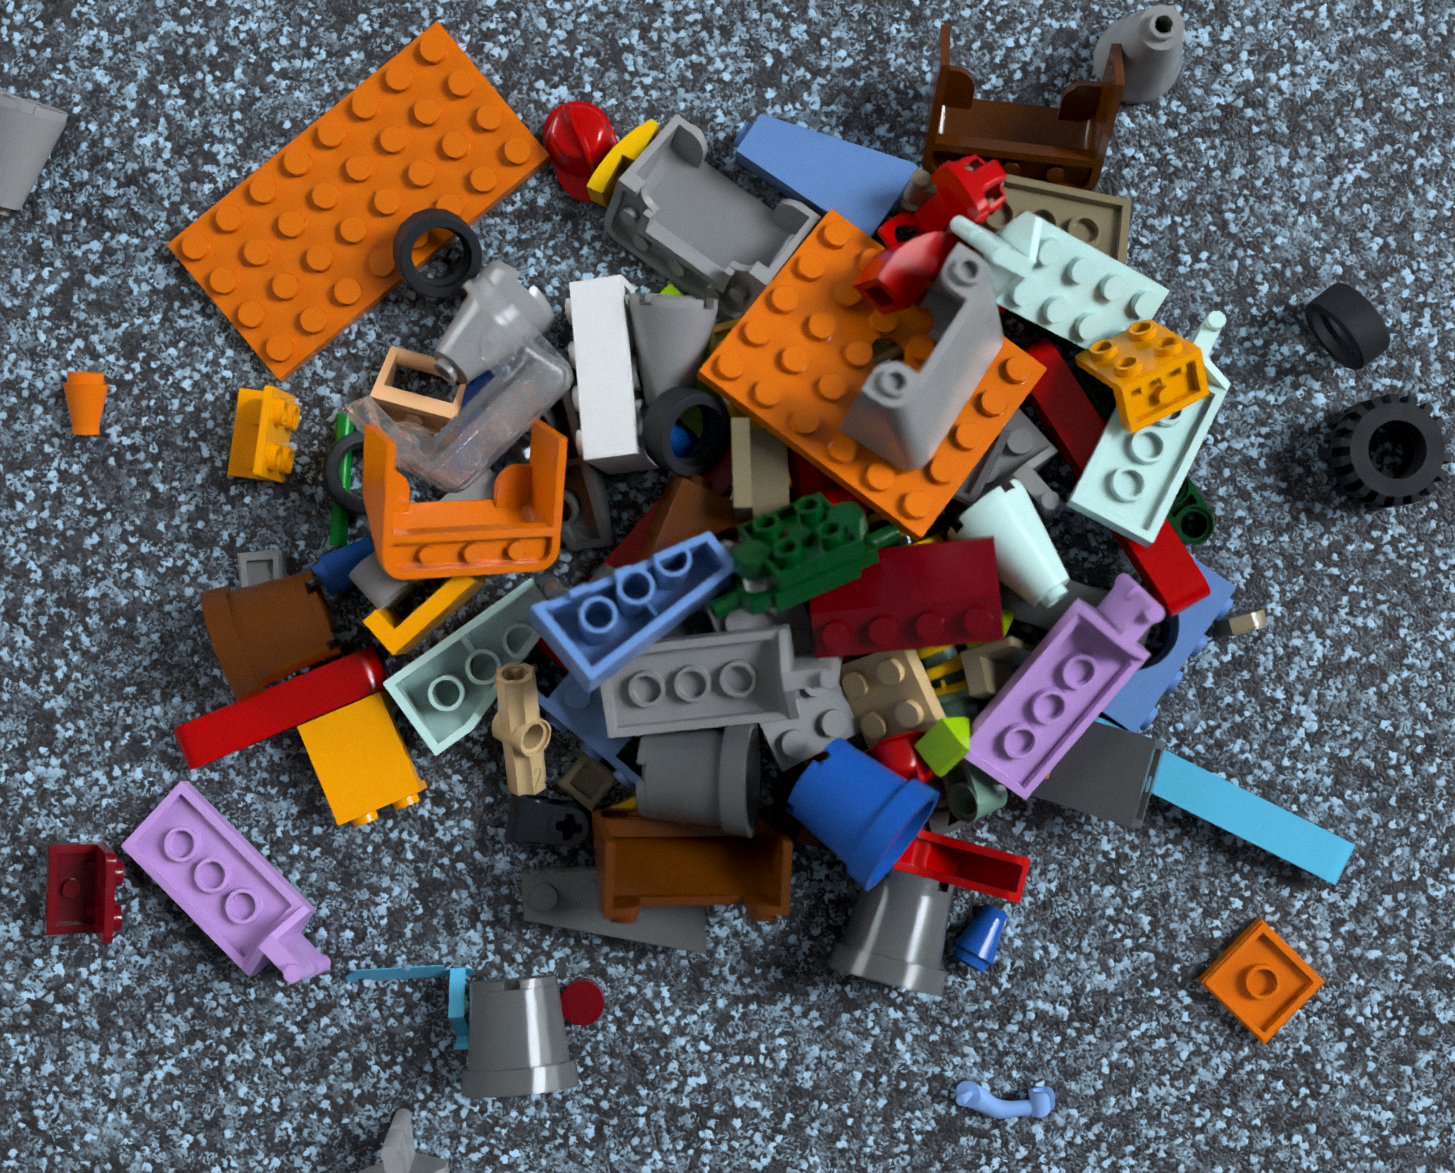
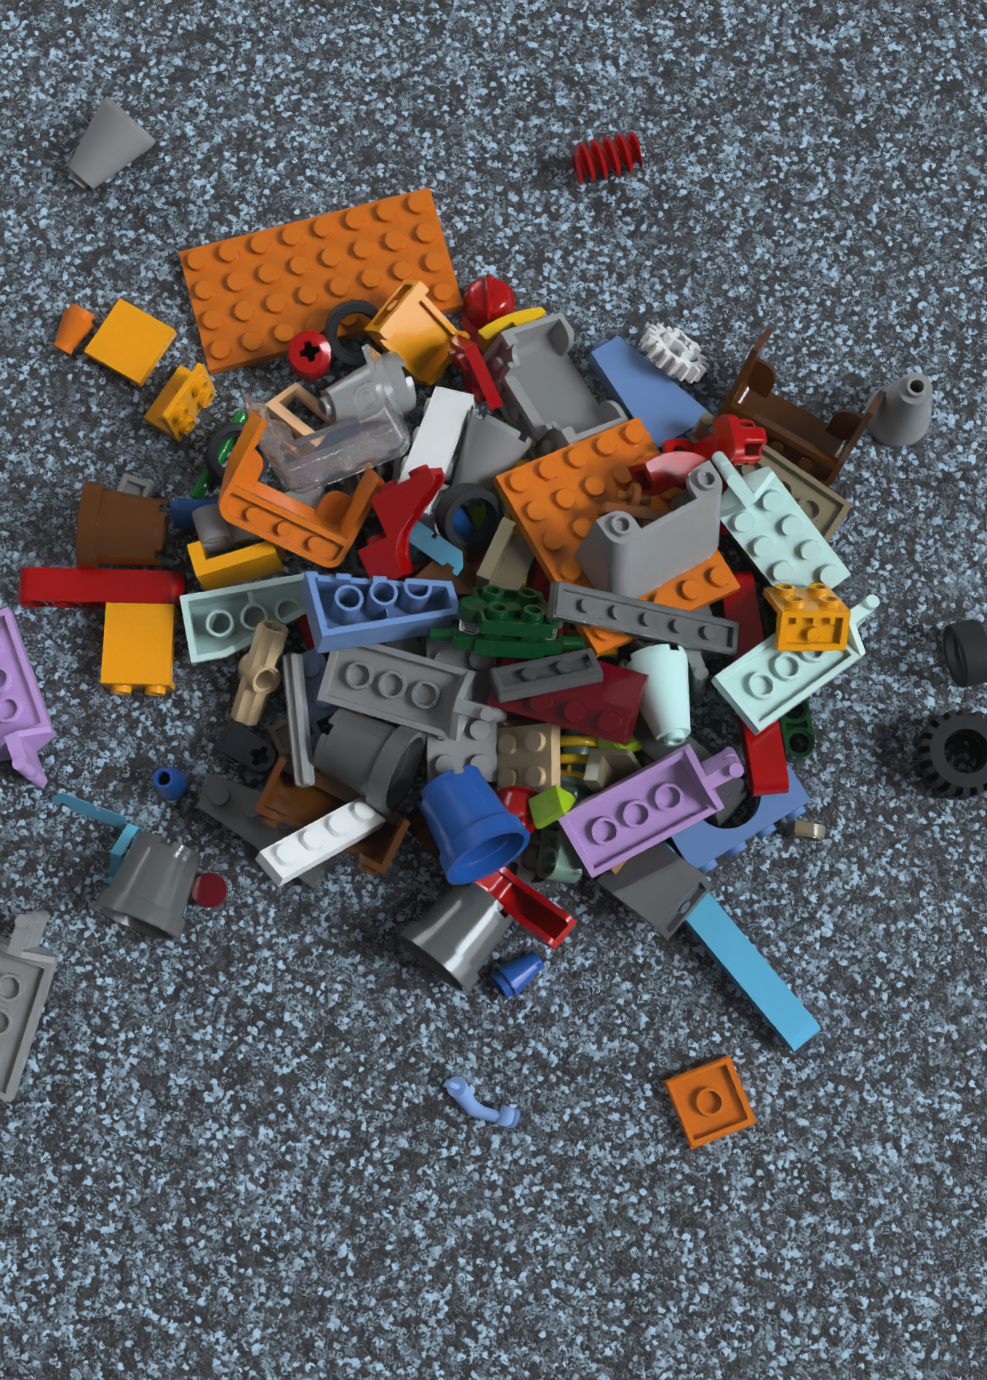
camera: 25 degrees right, 10 degrees down
(164, 387) = (130, 342): none -> light orange tile
(412, 311) = (299, 362): none -> red piece
(483, 893) = (175, 788): none -> blue cone
(513, 221) = (415, 331): none -> light orange panel
(596, 770) = (298, 720): none -> light grey axle
(599, 466) = (399, 510): none -> red arch
(612, 247) = (477, 378): none -> red plate
(640, 484) = (437, 548): none -> medium azure piece
(694, 912) = (319, 841): none -> white plate
(838, 105) = (674, 353): none -> white gear
(874, 596) = (545, 675): none -> dark grey tile
(906, 344) = (632, 498): none -> dark orange hips
(956, 472) = (642, 619): none -> dark grey tile

